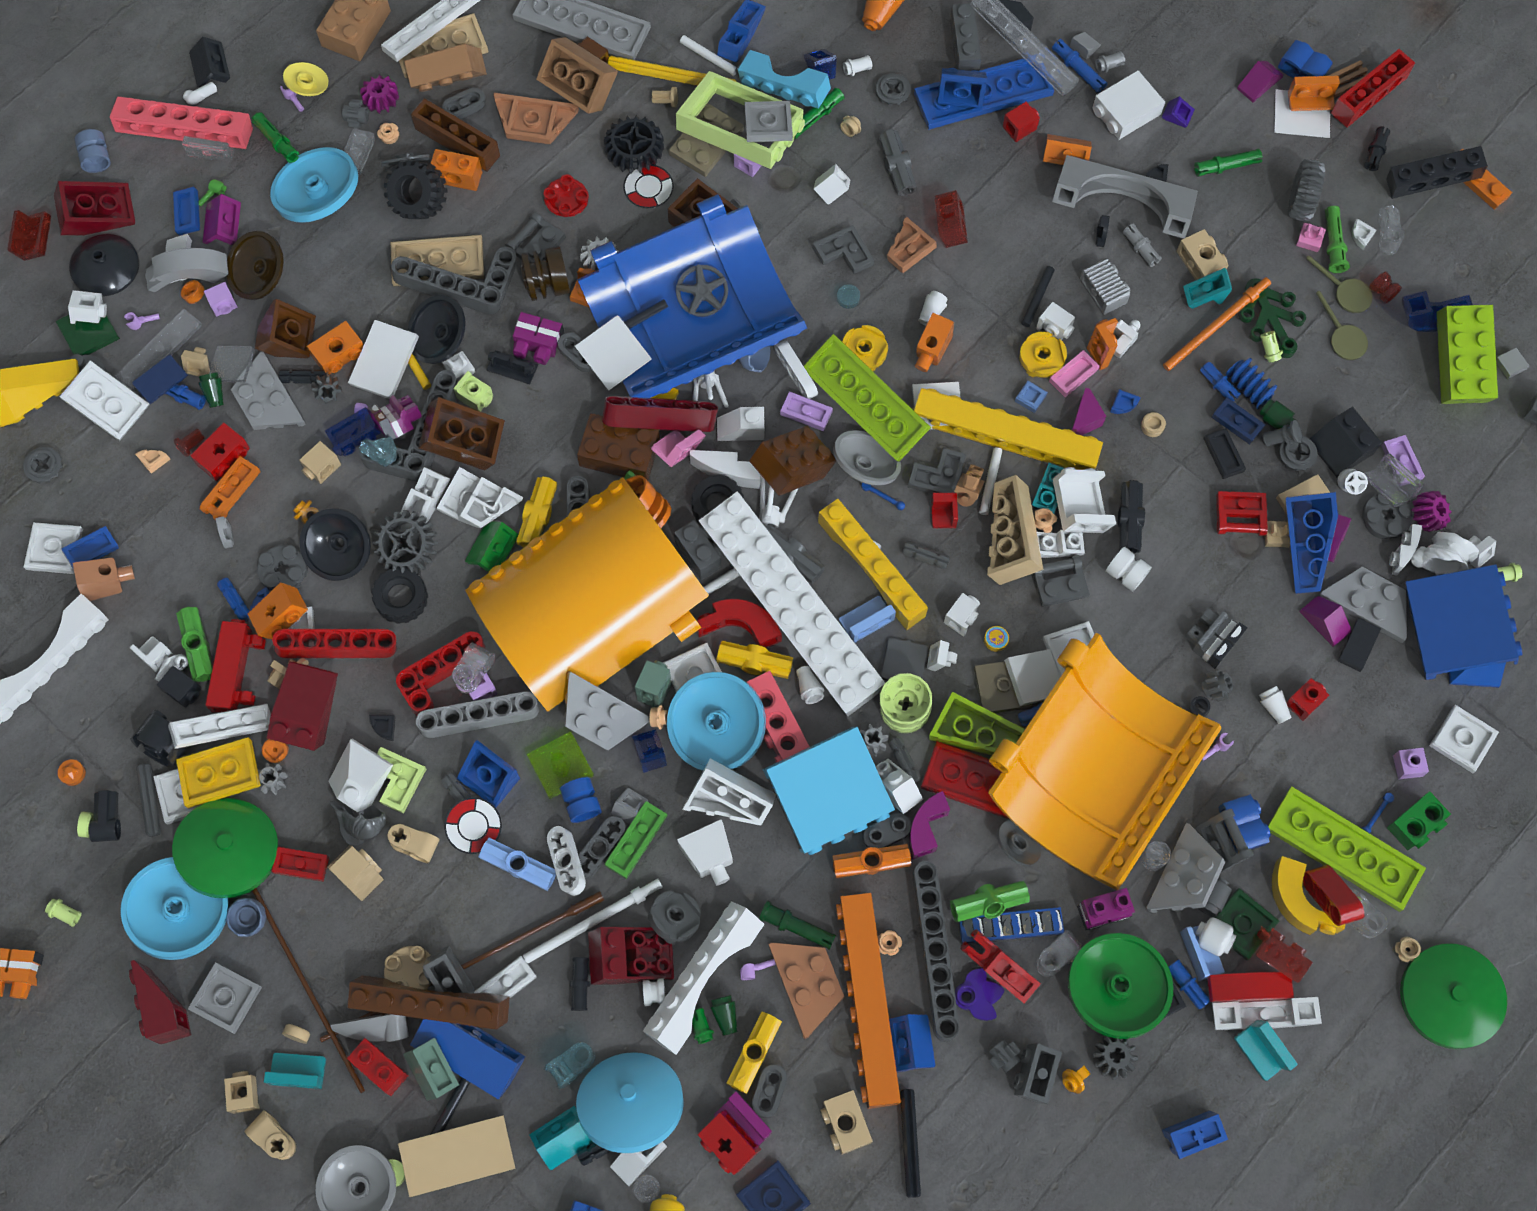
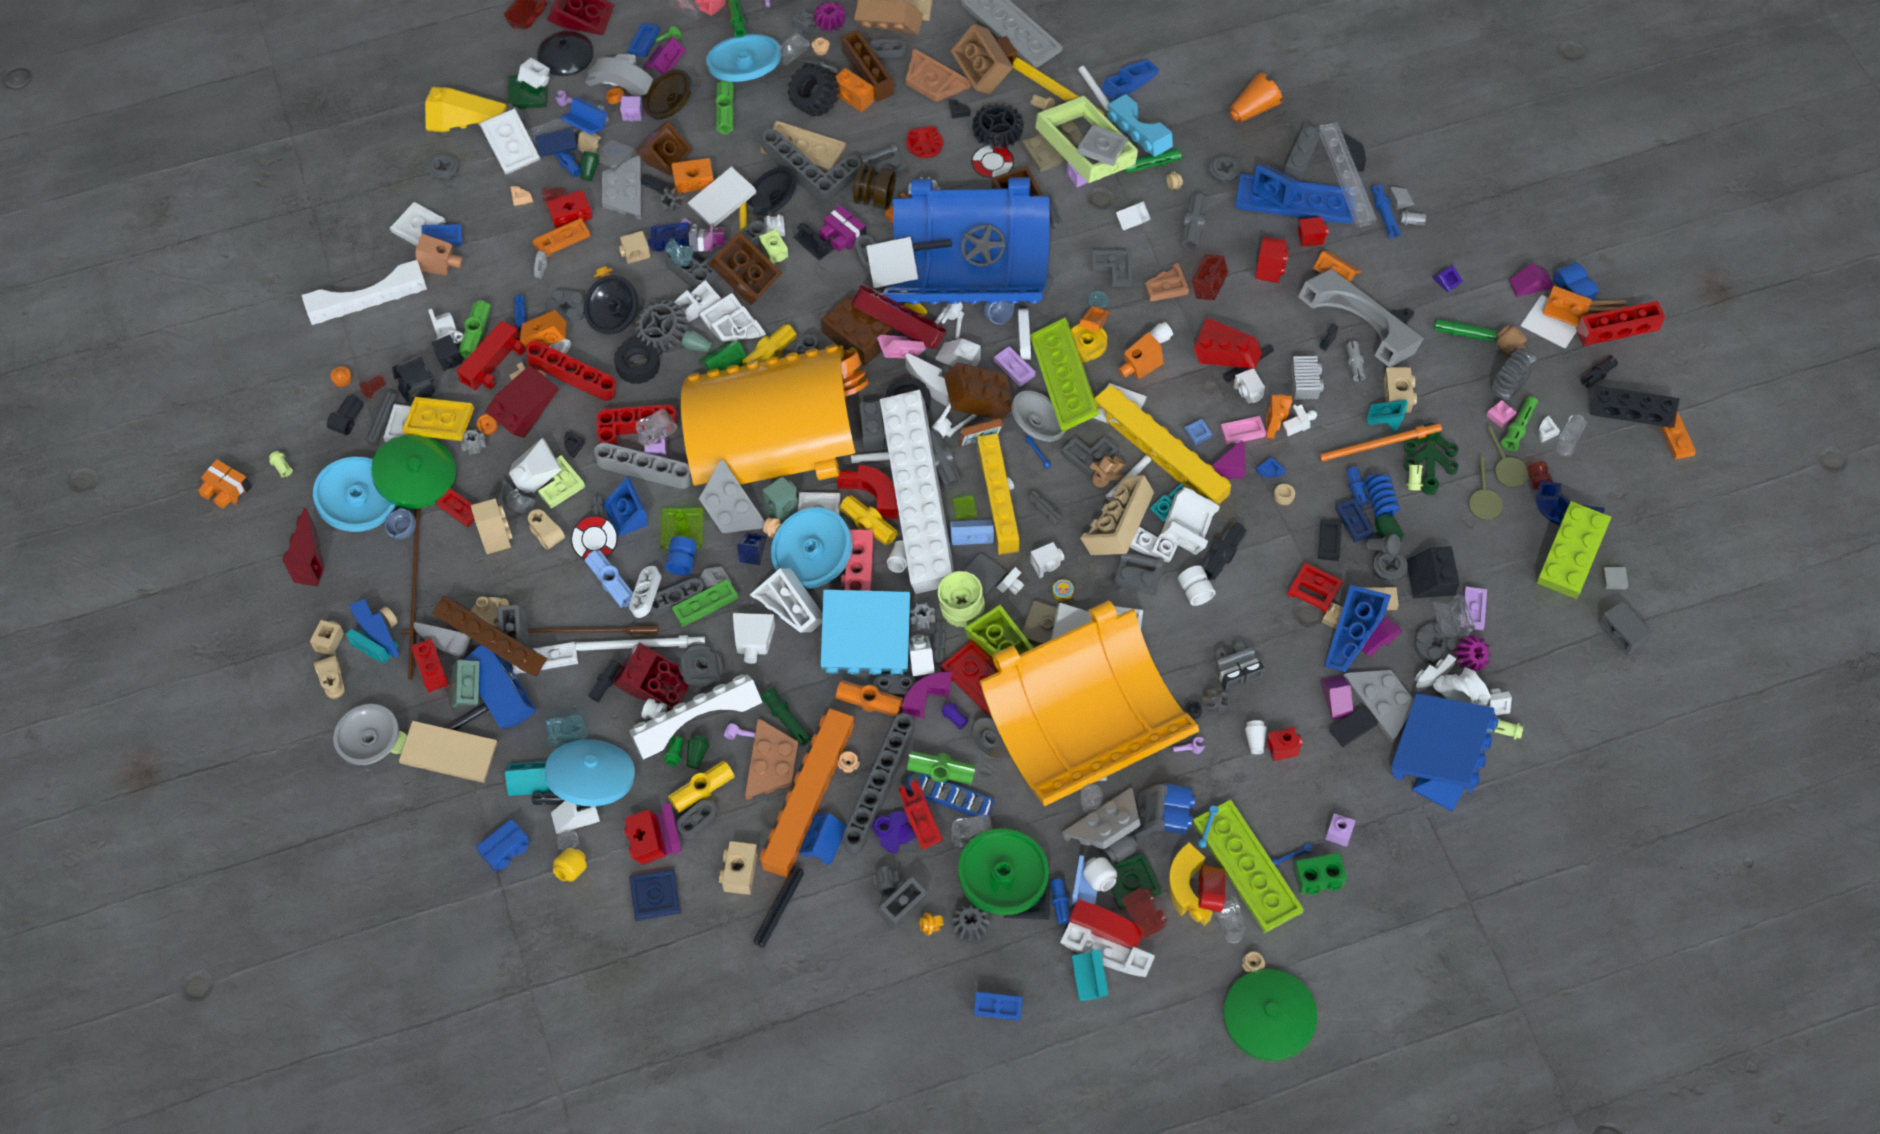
camera: 30 degrees right, 10 degrees down
(83, 824) = (327, 411): yellowish green tile -> none
(115, 767) = (372, 386): none -> clear red piece
(176, 333) = (585, 116): none -> blue panel
(220, 726) = (455, 387): white tile -> none
(225, 998) = (354, 571): light grey plate -> none
(289, 1055) = (373, 626): none -> blue slope
(329, 260) = (725, 107): none -> bright green piece
(452, 542) = (696, 342): none -> sand green cone
(579, 143) = (958, 110): none -> black tile
(818, 505) = (969, 434): none -> dark orange tile
(822, 61) = (1178, 127): clear blue slope -> none
(844, 595) = (964, 507): none -> clear neon green tile
(857, 65) = (1205, 140): white pin -> none
(860, 320) = (1094, 318): none -> orange tile
(944, 510) = (1079, 481): red panel -> none
(967, 834) = (954, 715): none -> dark purple pin
(1000, 170) = (1272, 259): none -> red brick
(1013, 289) = (1226, 346): none -> red wedge
(1047, 516) = (1152, 522): light nougat plate -> none
(1050, 345) = (1223, 395): yellow plate -> none
(1104, 908) = (1024, 811): magenta hips -> none
(1128, 105) = (1407, 255): white brick -> none
(1279, 153) = (1510, 339): none -> medium nougat head
(1283, 807) = (1213, 811): none -> dark azure hinge
(1358, 483) = (1422, 606): white wheel -> none
(1464, 739) = (1398, 834): white tile -> none

